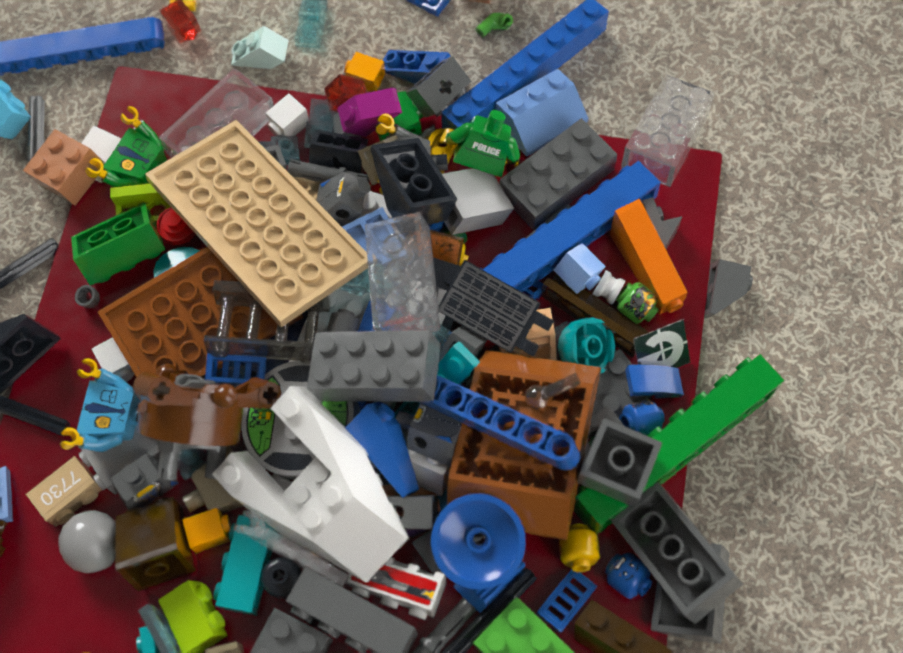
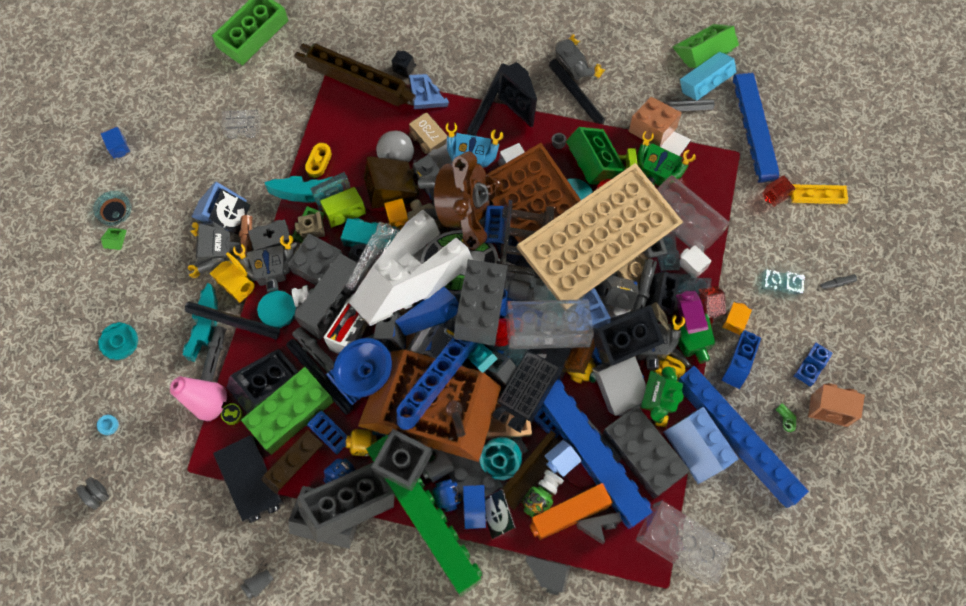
camera: 90 degrees right, 0 degrees up
(260, 49) = (754, 245): light aqua slope -> none
(444, 75) = (722, 372): dark grey brick -> none

